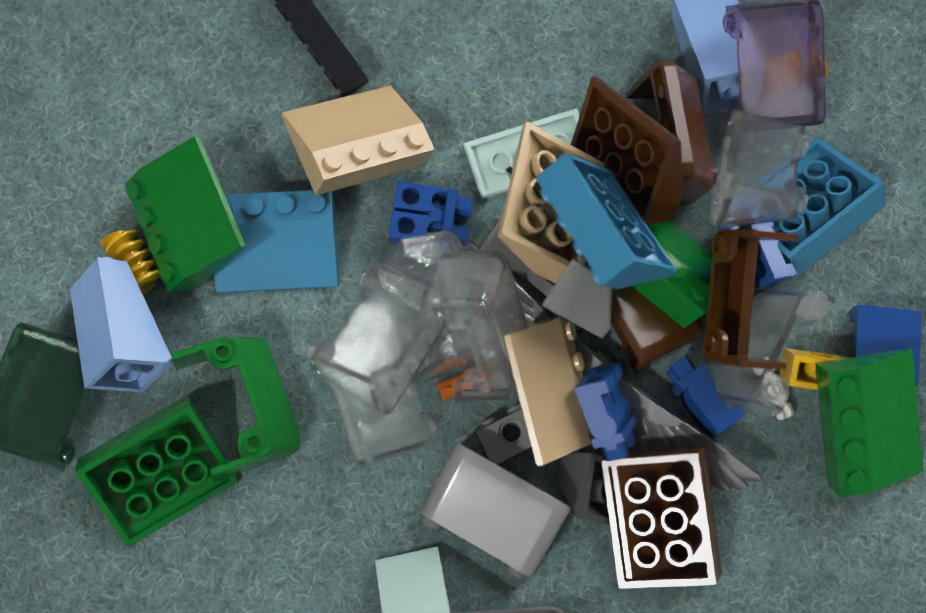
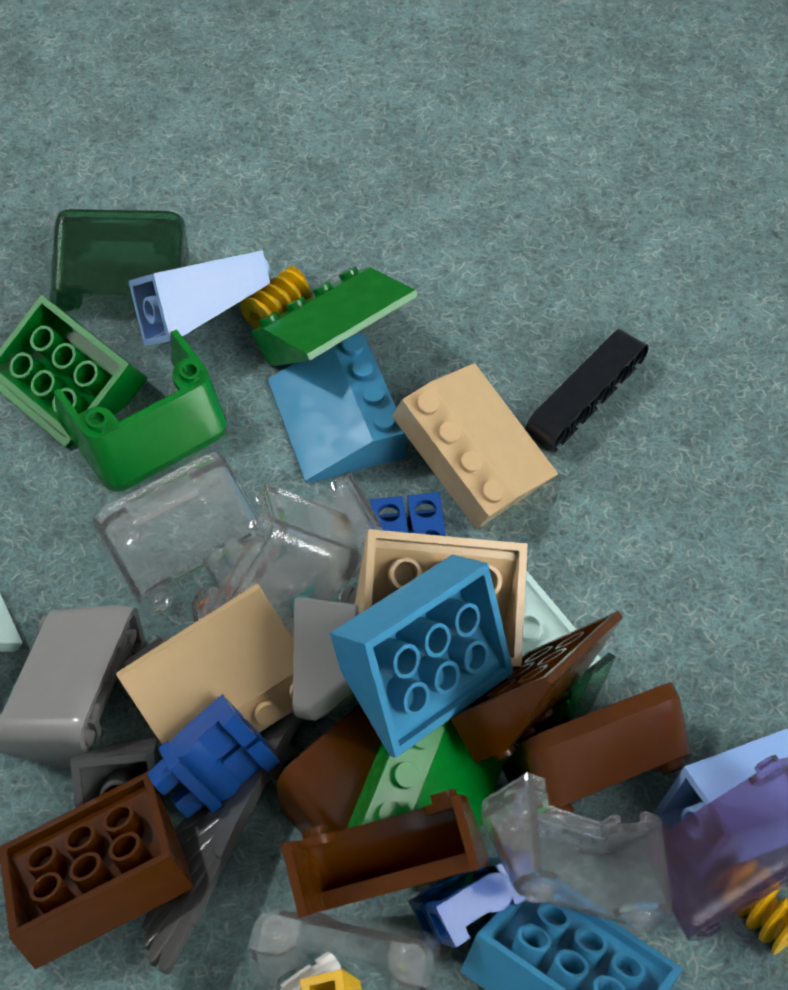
camera: 70 degrees right, 25 degrees down
(382, 339) = (214, 498): clear windscreen -> none
(700, 397) = (252, 882): blue hips -> none

